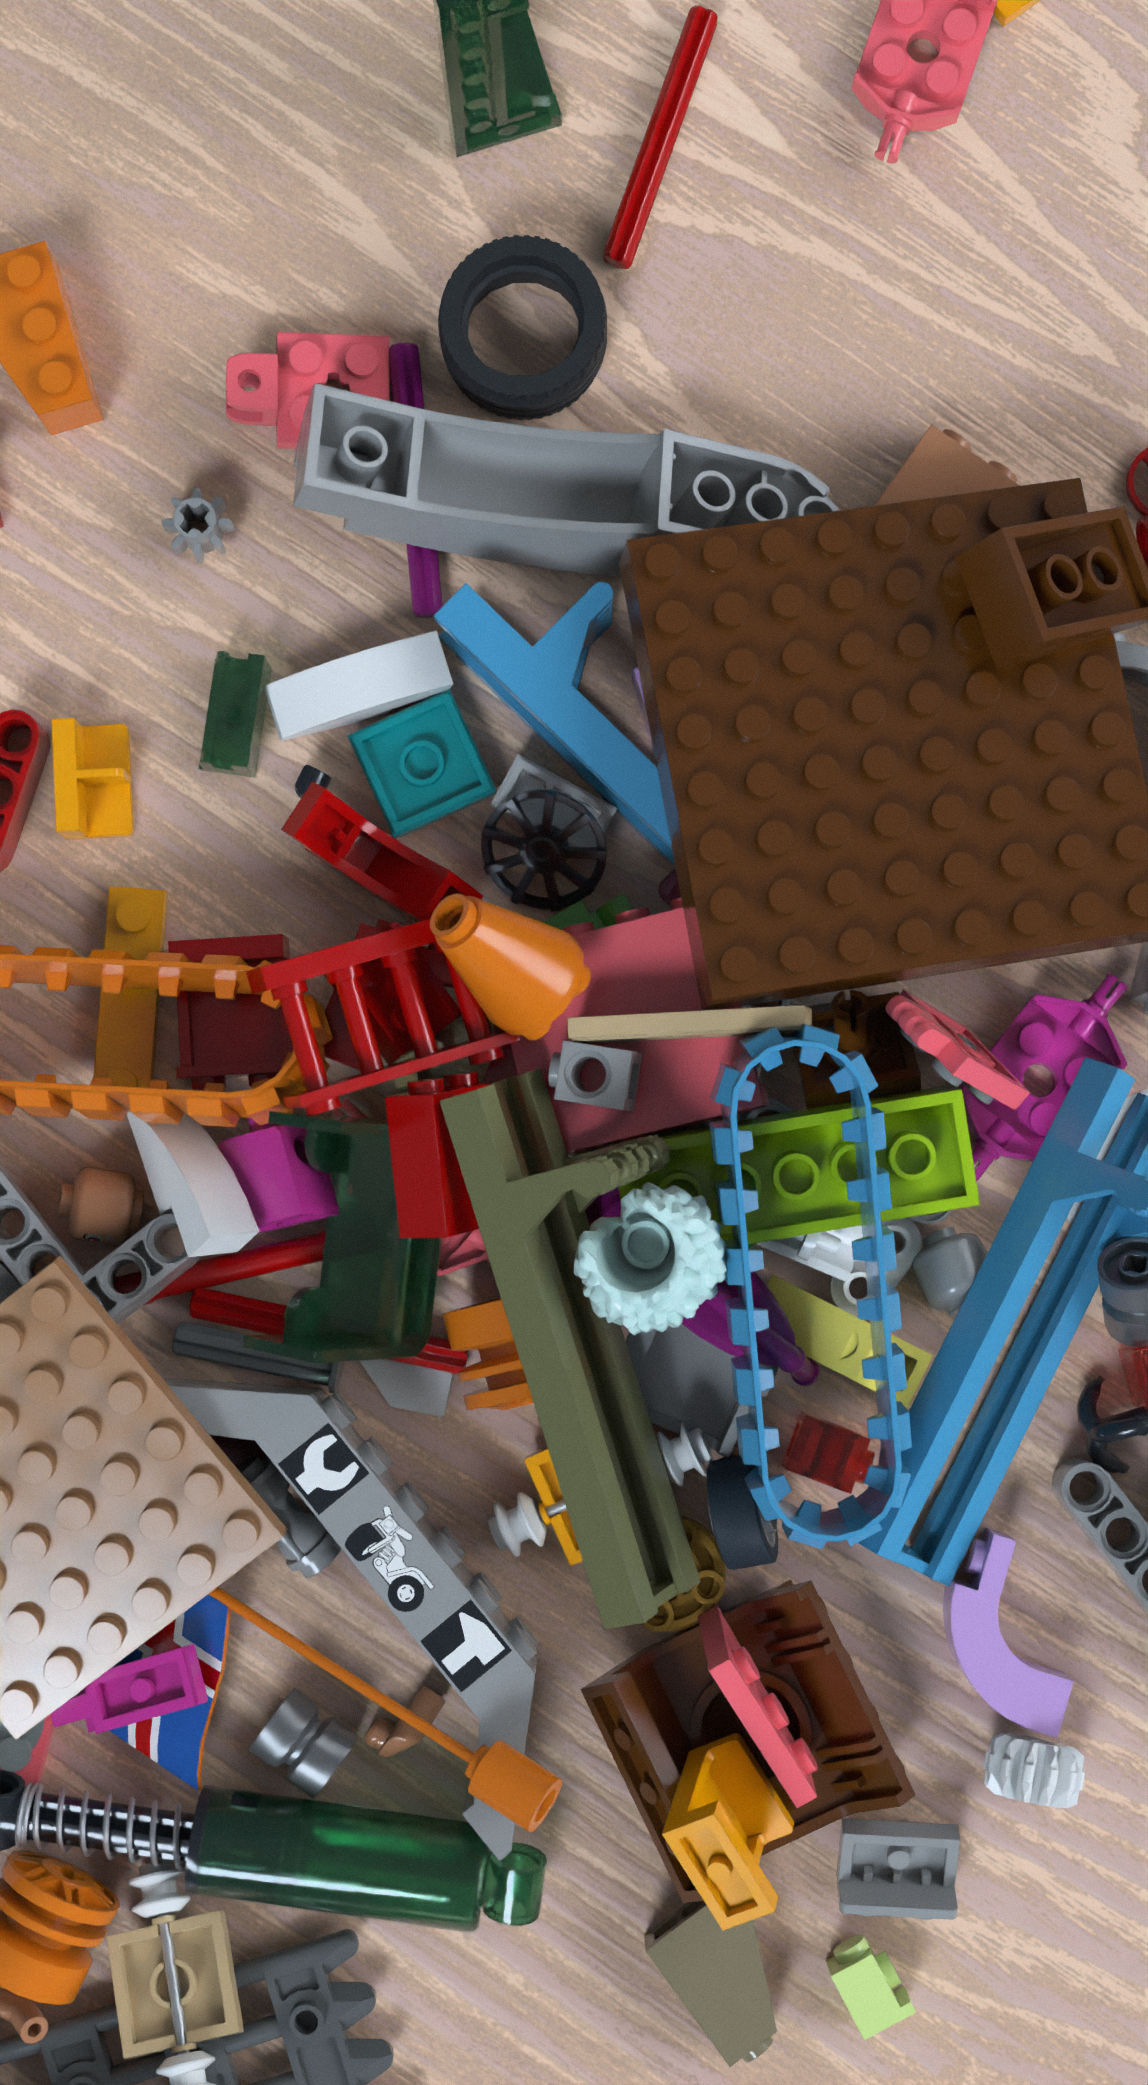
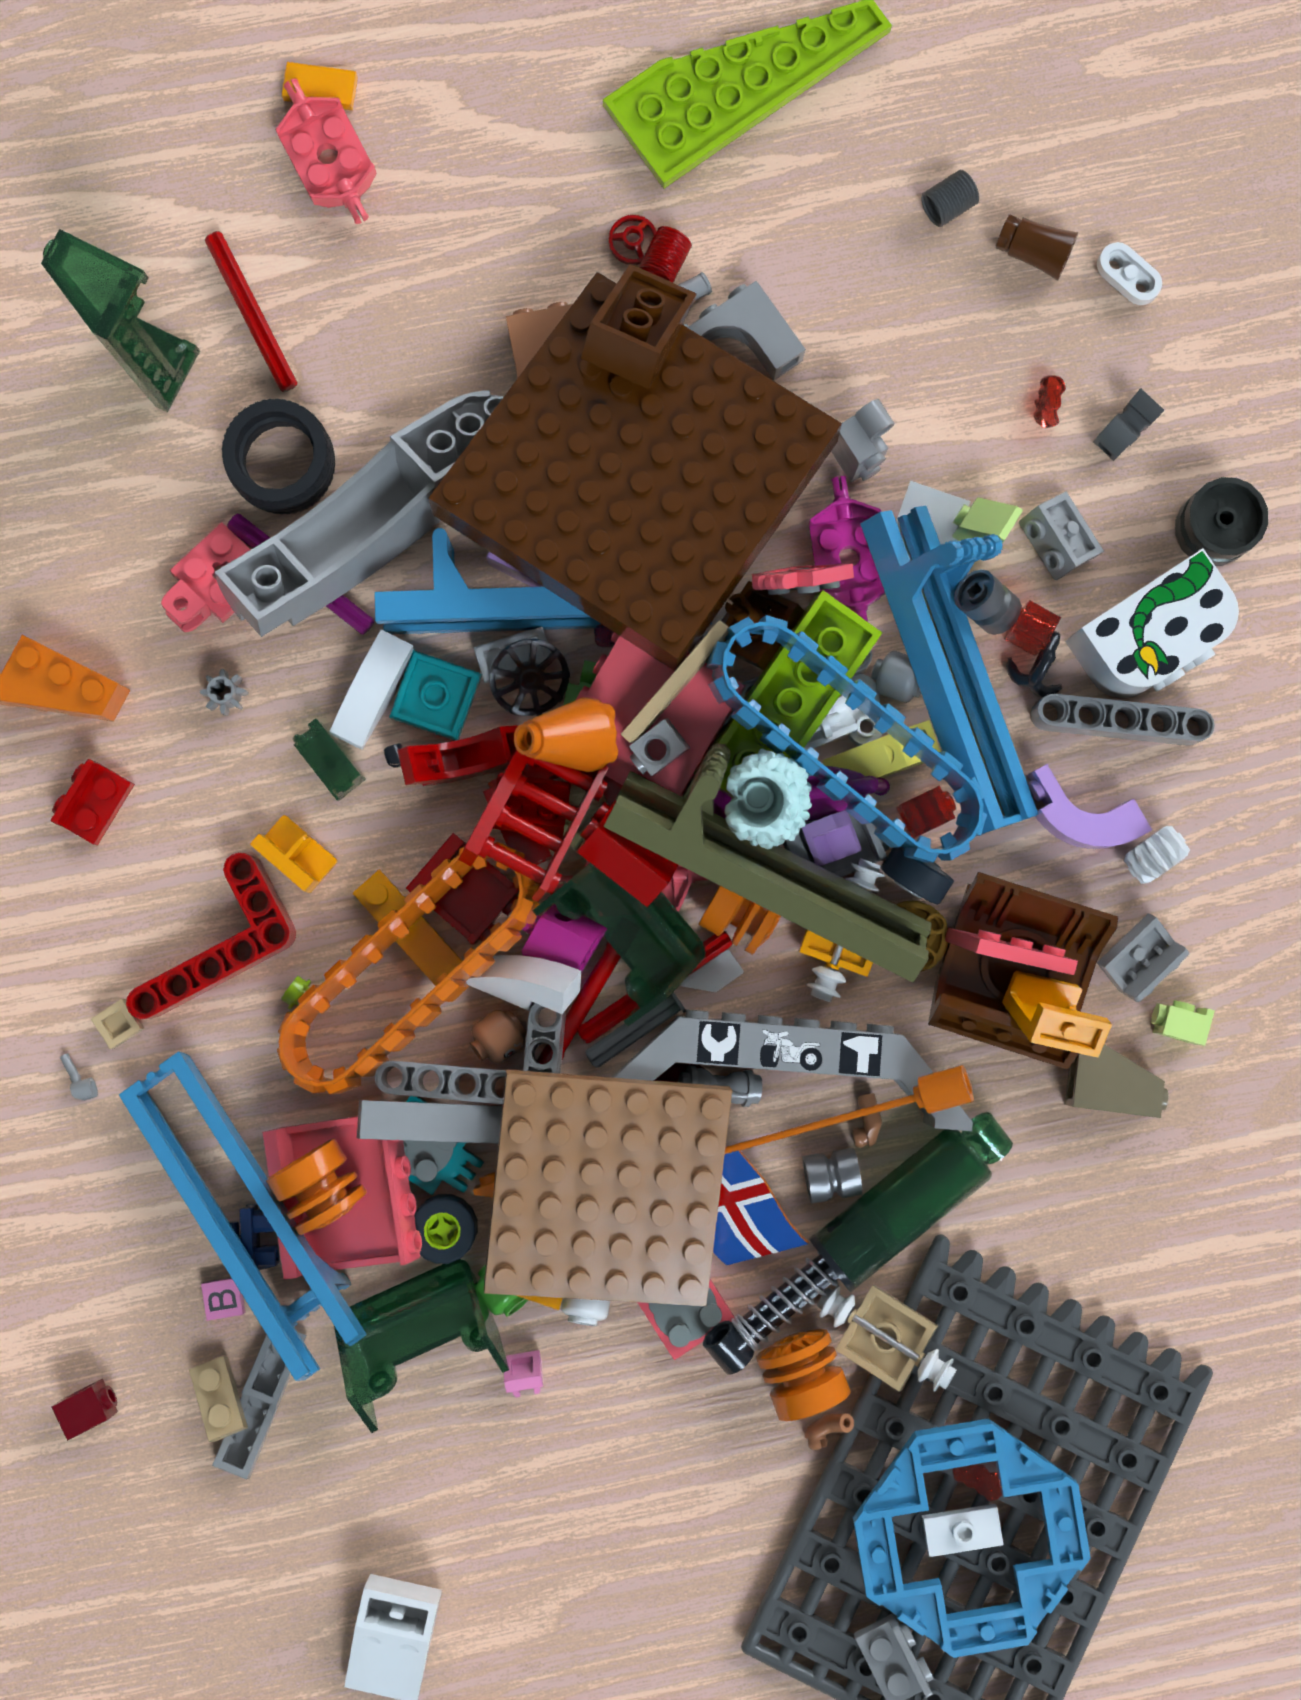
camera: 55 degrees left, 0 degrees up
(137, 1692) = (737, 1229): dark pink hinge -> none
(688, 1372) = (831, 838): none -> lavender panel

